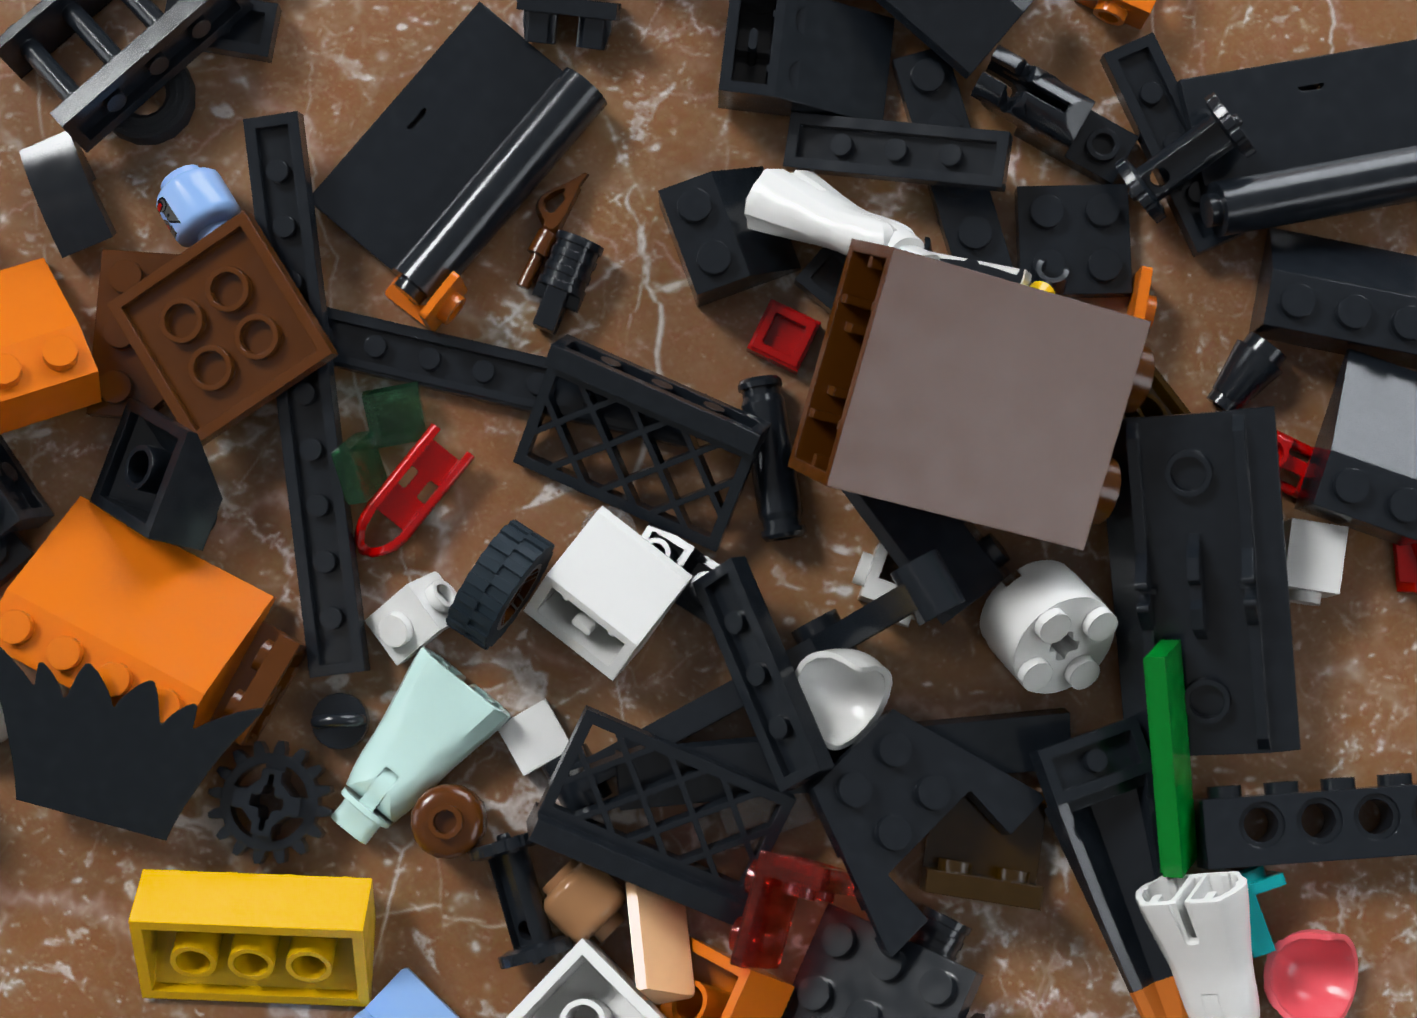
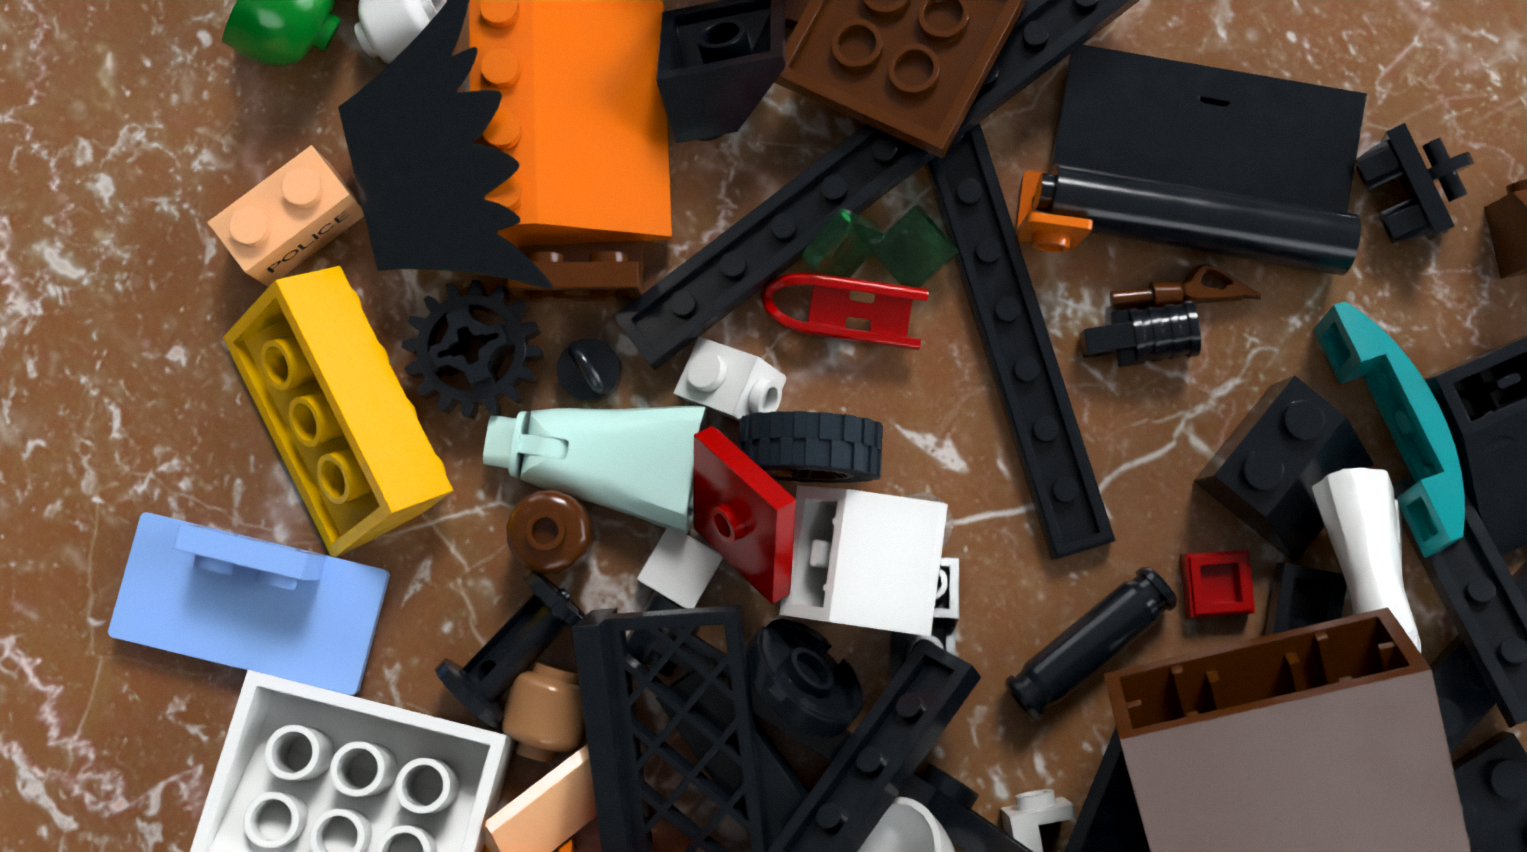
camera: 60 degrees right, 0 degrees up
(79, 889) = (287, 217): none -> light nougat brick
(520, 664) = (743, 514): none -> red plate
(660, 399) = (1085, 494): black fence -> none
(670, 692) = (802, 680): none -> black tile
(673, 124) = (1413, 416): none -> teal slope

